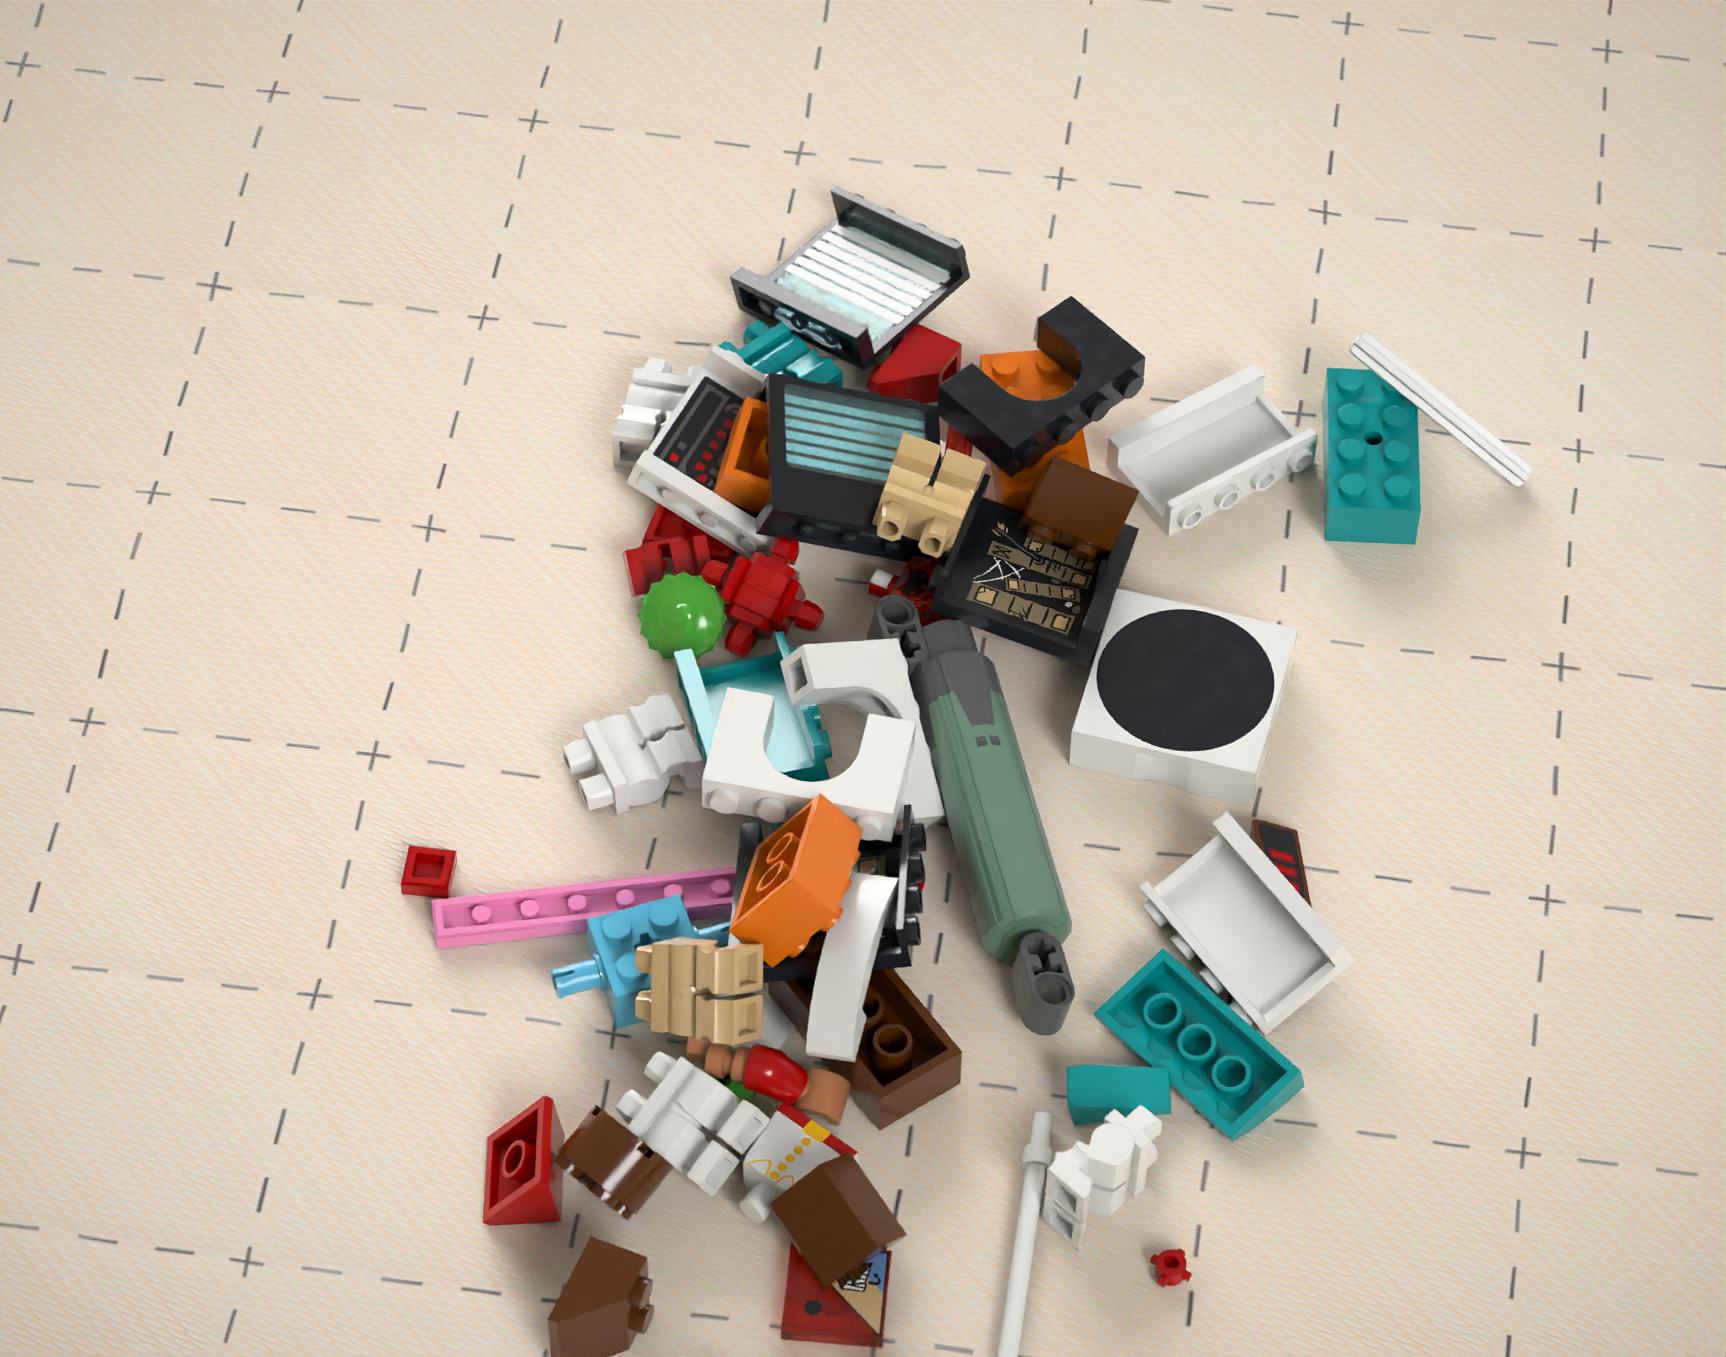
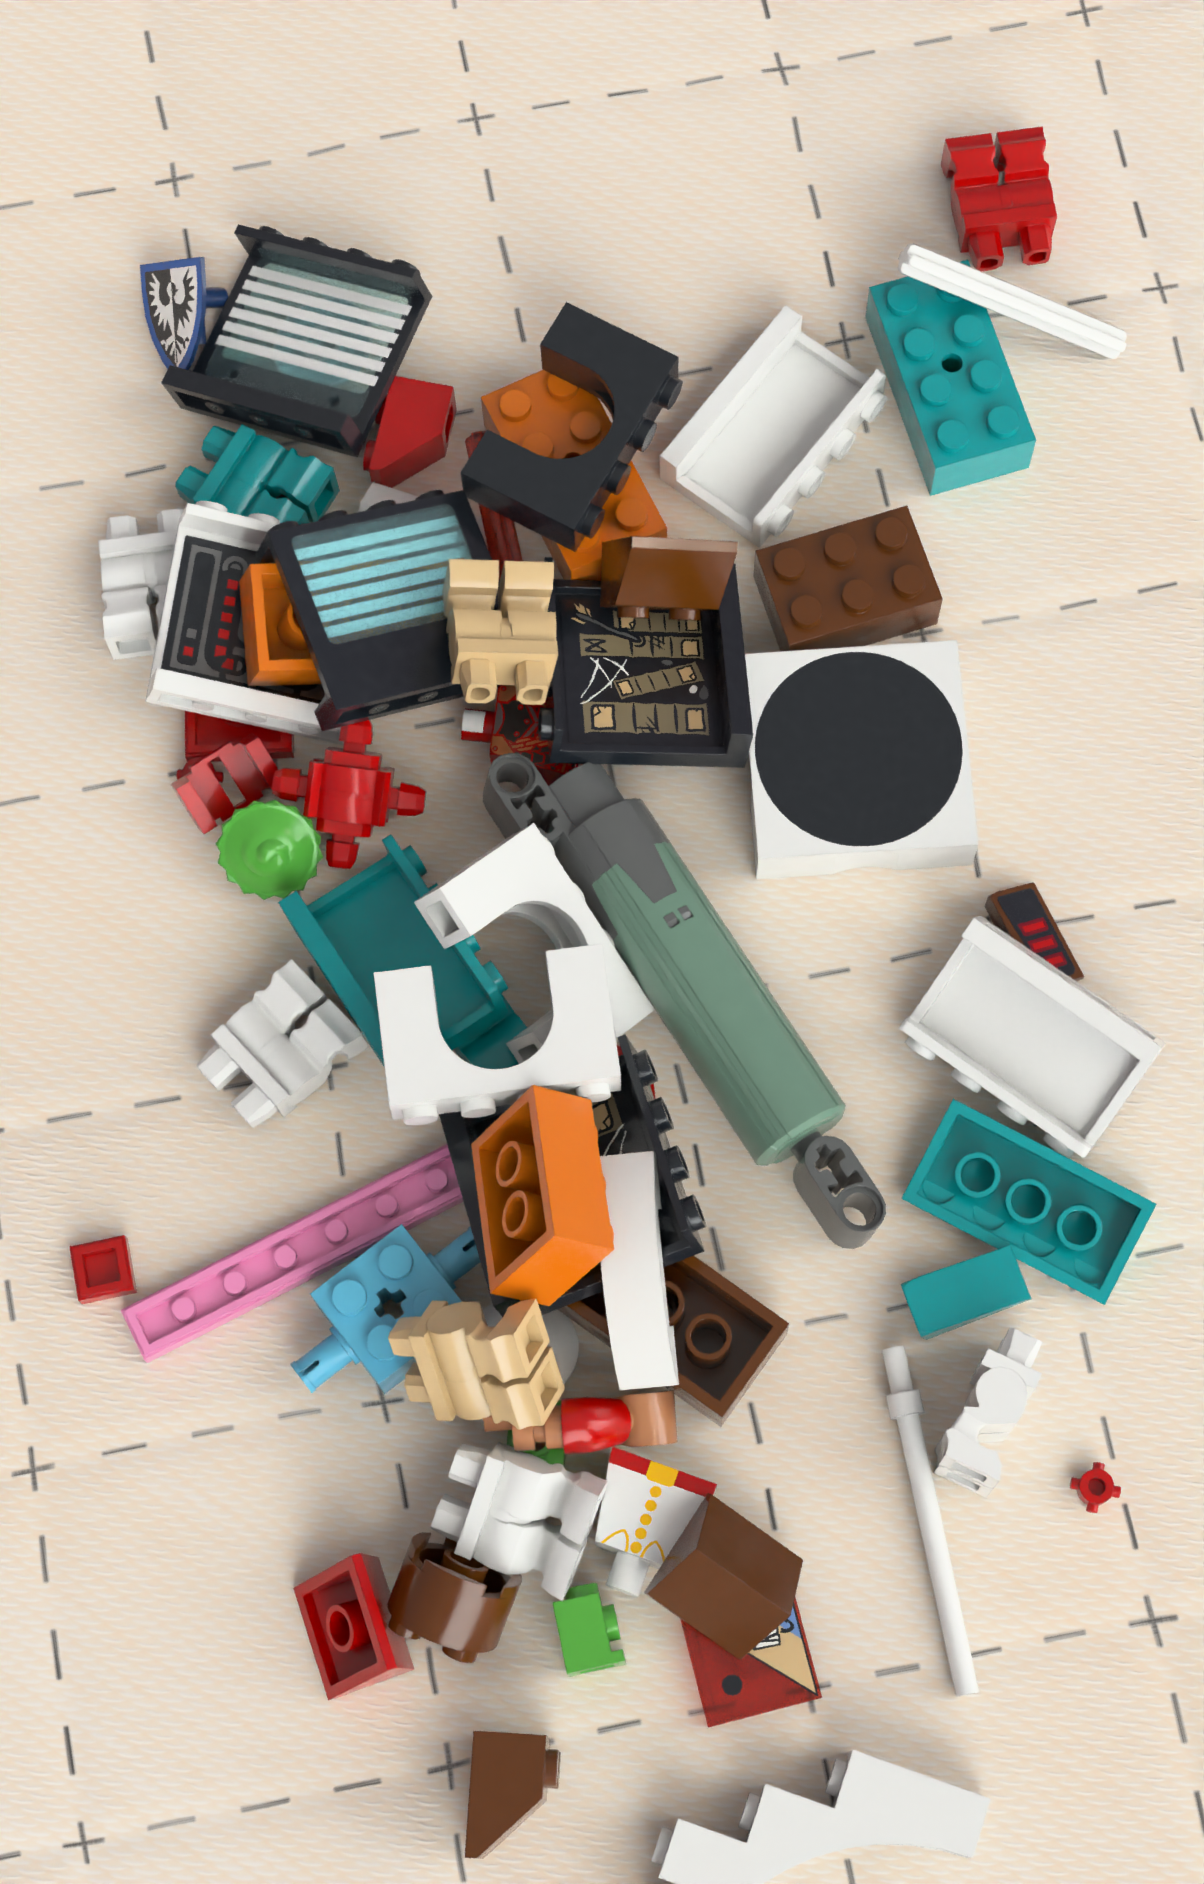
camera: 15 degrees left, 20 degrees up
(710, 1233) = (587, 1630): none -> bright green brick
(765, 231) = (176, 307): none -> shield
(1229, 568) = (848, 584): none -> reddish brown brick
(1464, 357) = (1005, 214): none -> red hips

